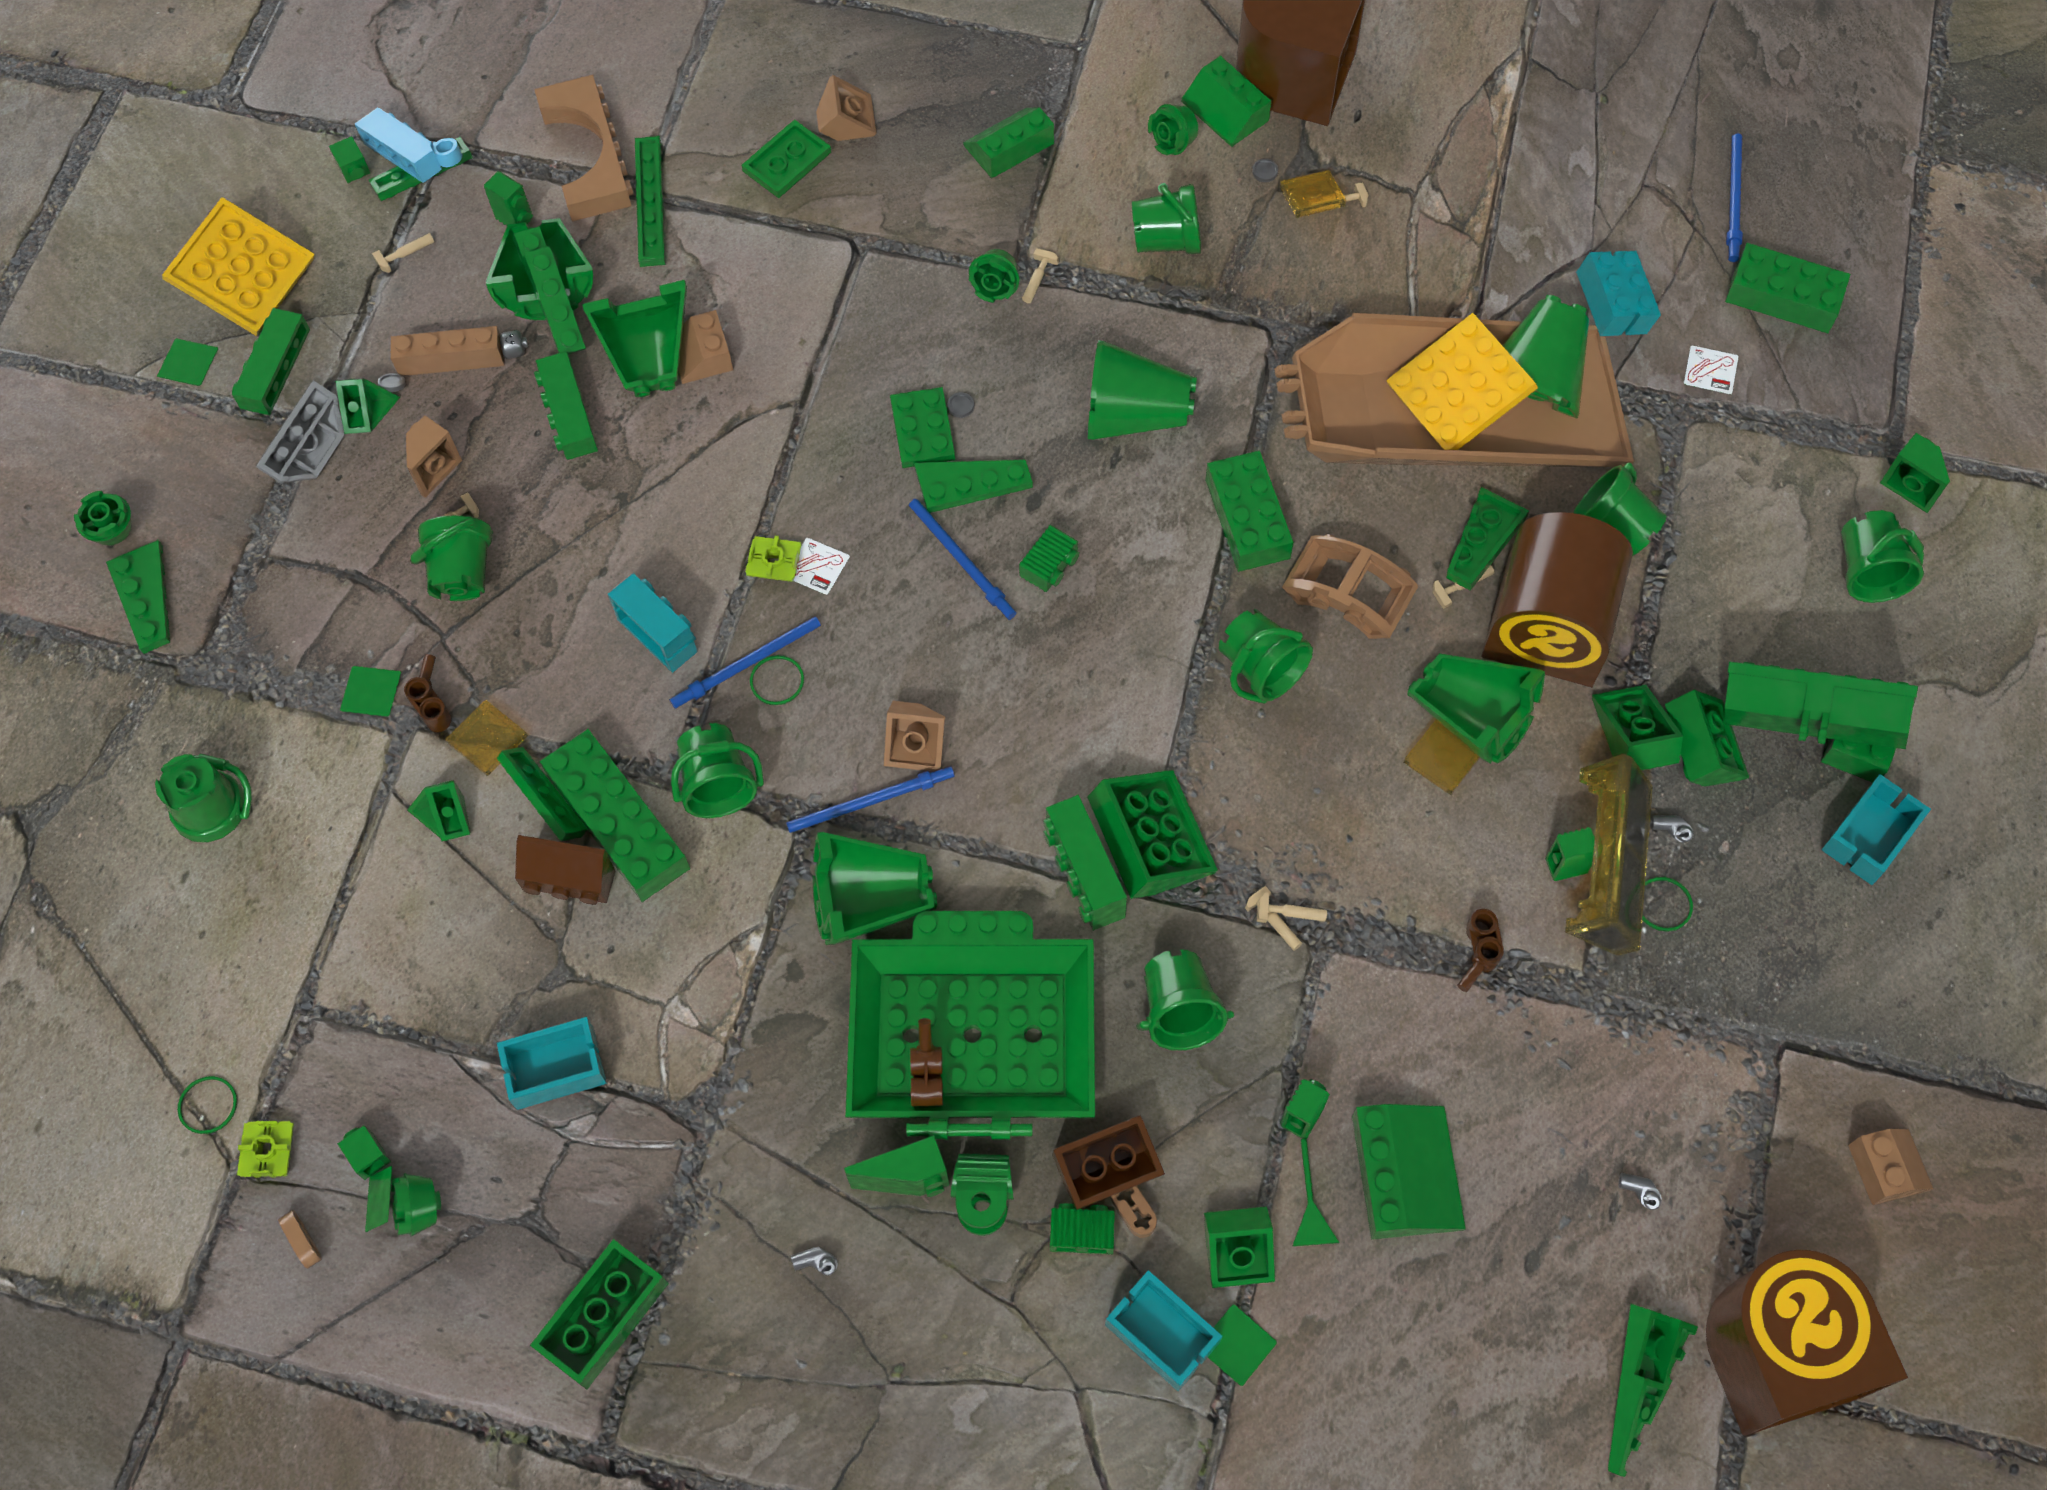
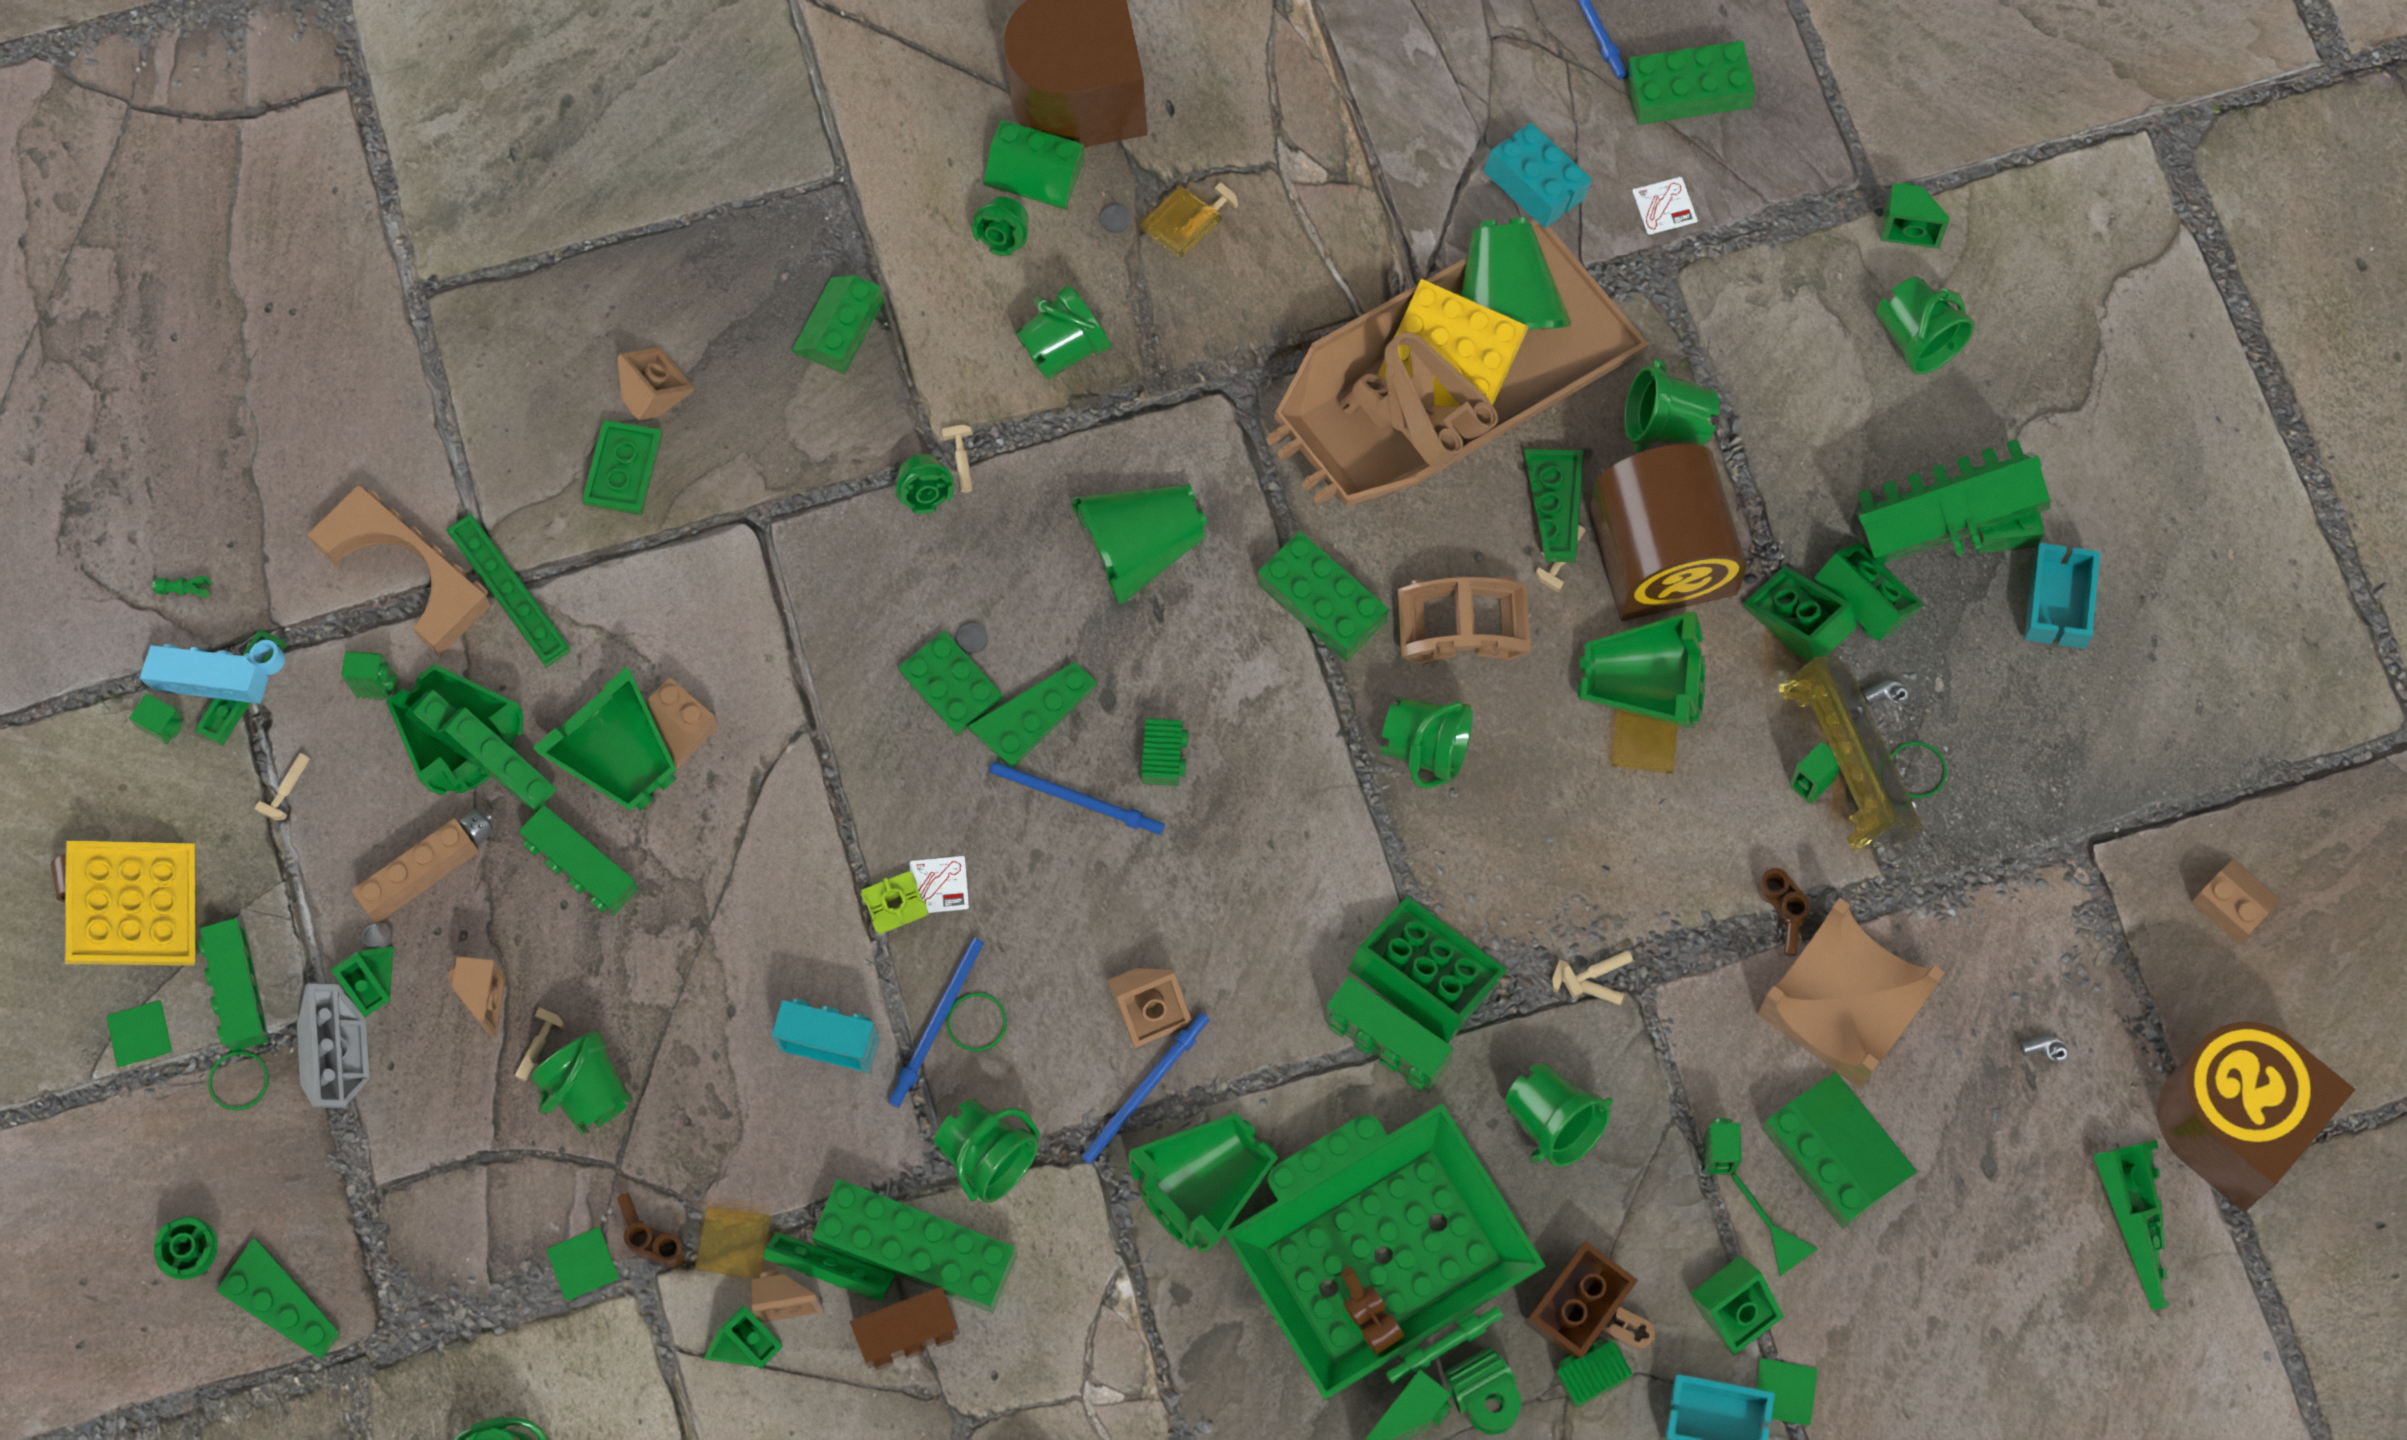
camera: 30 degrees left, 5 degrees up
(235, 448) = (250, 1104): none -> green piece
(431, 85) = (163, 586): none -> green piece
(487, 795) = (782, 1298): none -> medium nougat slope
(1397, 395) = (1407, 401): none -> medium nougat connector
(1491, 1050) = (1848, 997): none -> medium nougat piece

